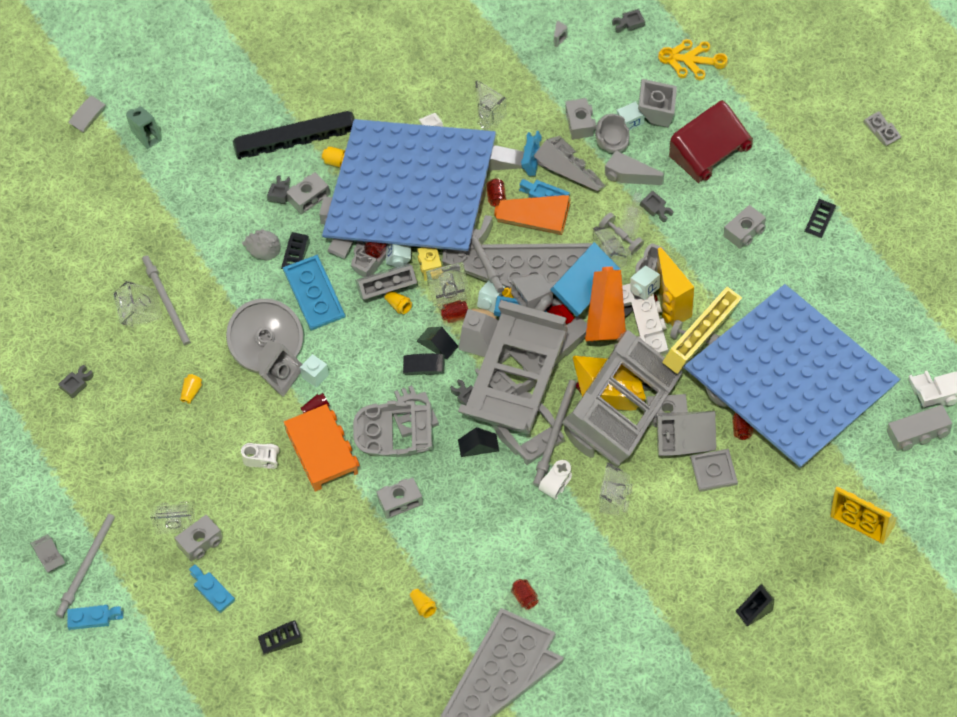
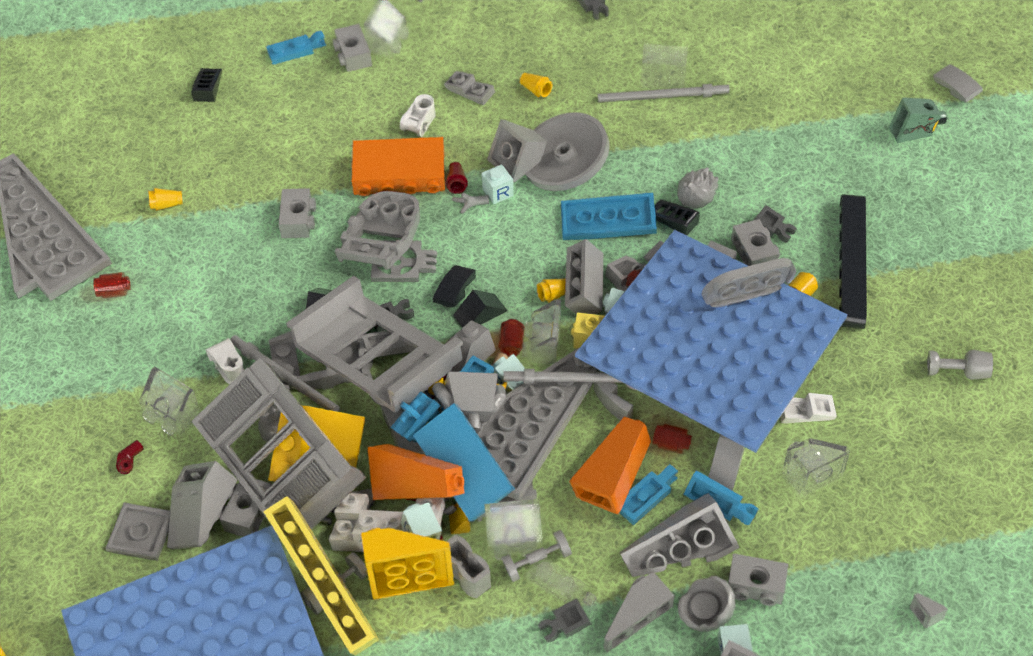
camera: 110 degrees right, 5 degrees down
(210, 436) = (466, 86): none -> light grey slope
(333, 389) = (470, 201): none -> light grey bar
(362, 49) = (975, 364): none -> light grey piece
(368, 162) = (748, 282): none -> light grey tile
(572, 321) = (415, 416): none -> dark azure hips
(664, 508) = (125, 457): none -> dark red arm

